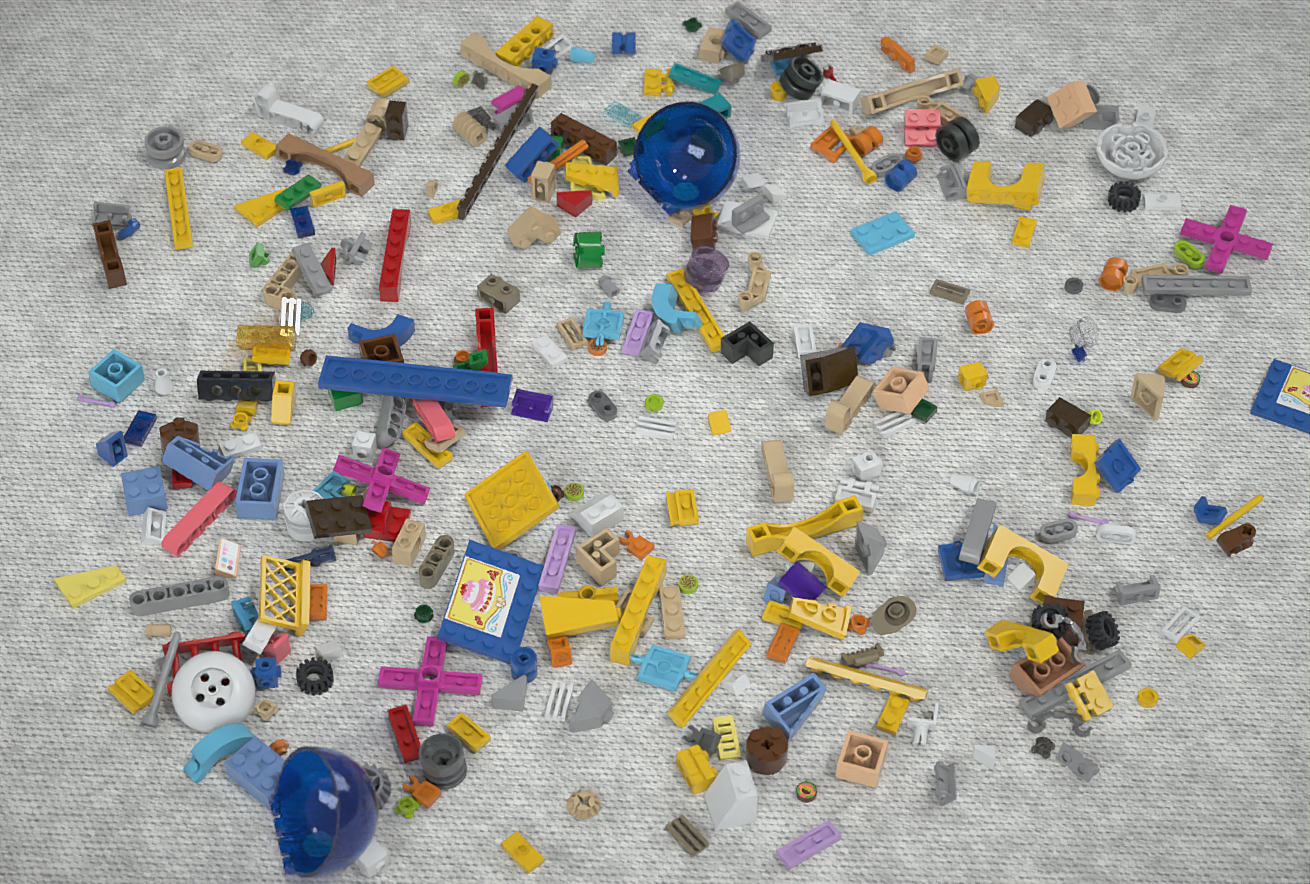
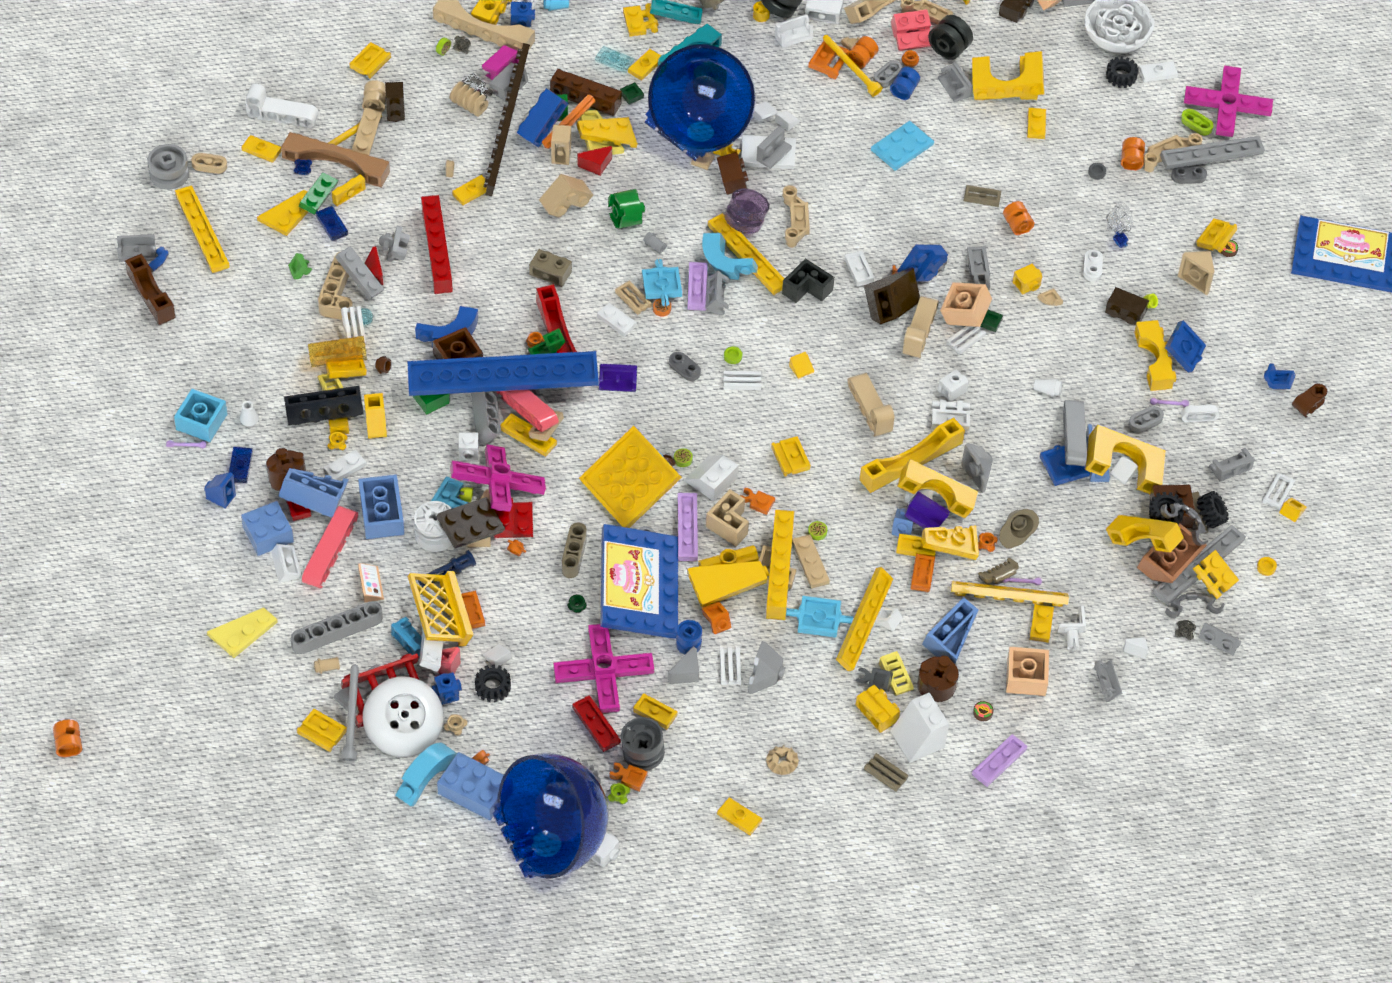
camera: 15 degrees left, 5 degrees up
(409, 542) = (542, 536): tan brick -> none
(1234, 516) = (1300, 379): yellow bar -> none

